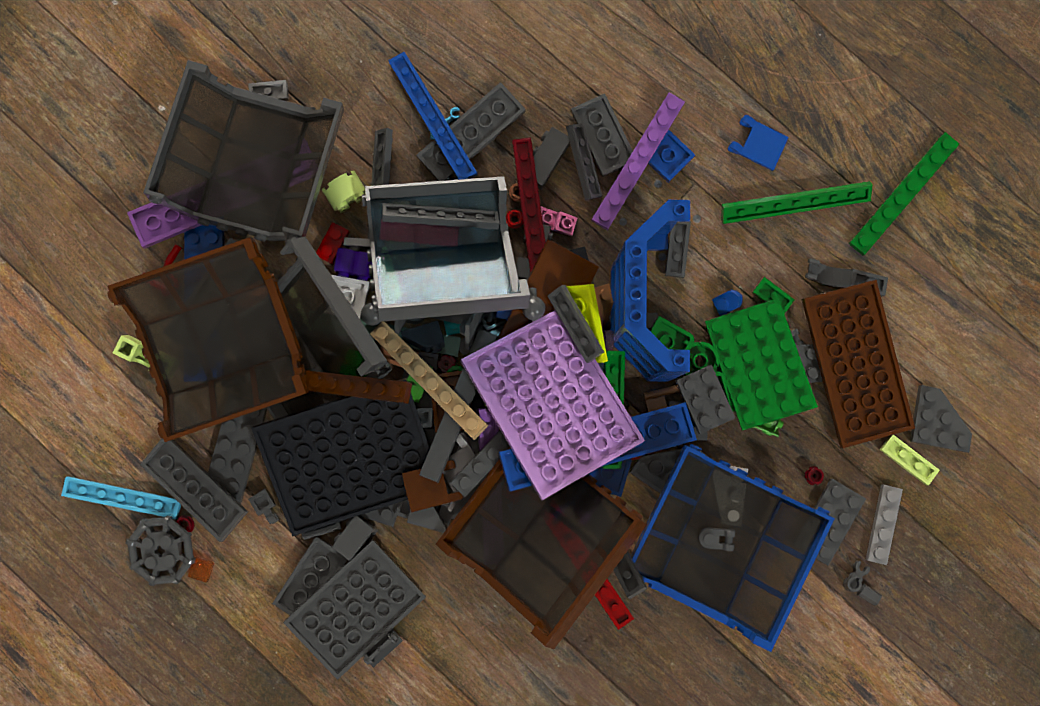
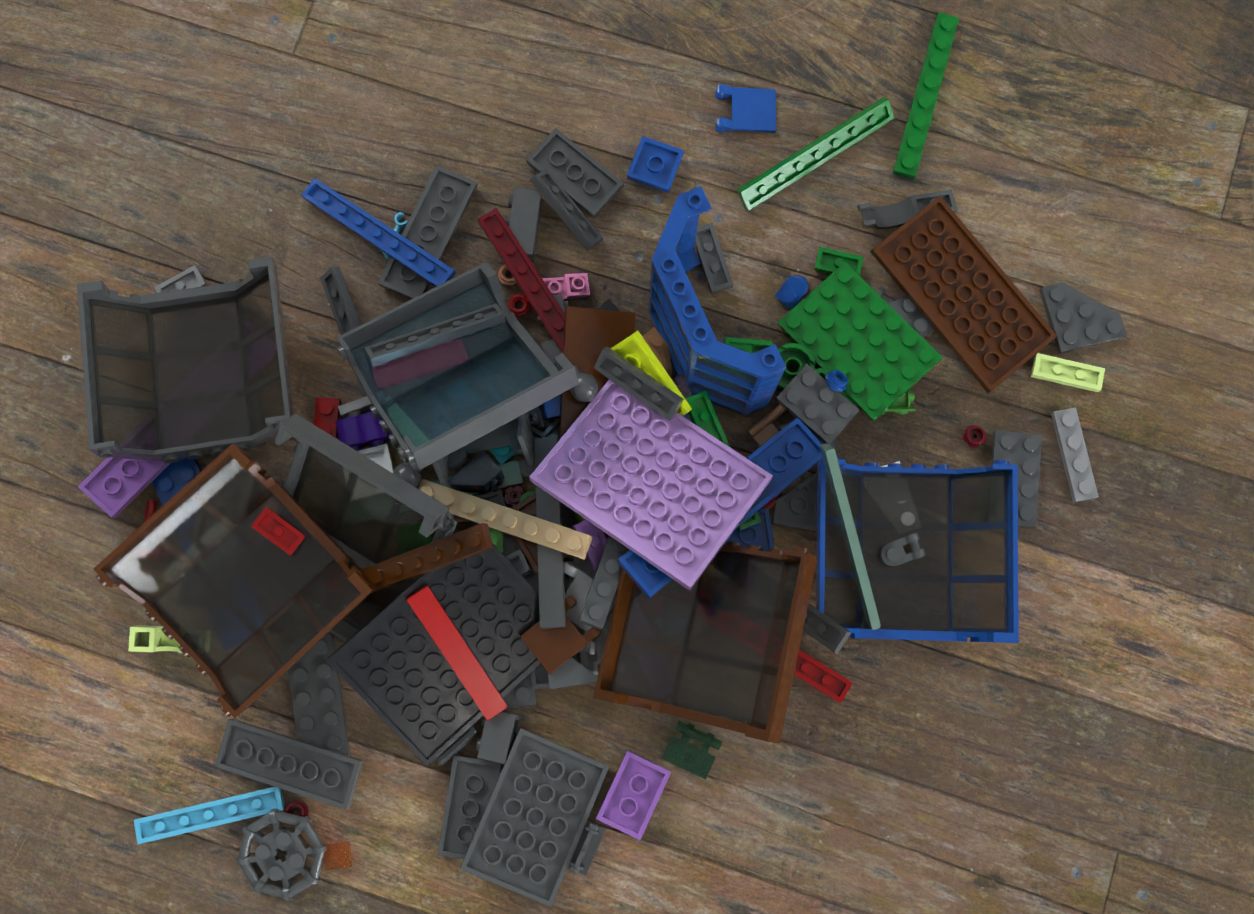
camera: 20 degrees left, 5 degrees down
(258, 314) = (278, 531): none -> red plate
(263, 504) = (377, 746): dark grey plate -> none
(344, 191) = (315, 356): yellowish green brick -> none
(349, 464) = (457, 652): none -> red tile
(434, 626) = (633, 795): none -> medium lavender plate
(488, 617) = (689, 757): none -> clear green plate
(638, 161) = (625, 184): medium lavender plate -> none
(682, 512) = (850, 535): none -> sand green tile
(728, 388) = (836, 380): none -> blue plate
(854, 584) = (1072, 531): dark grey bar -> none

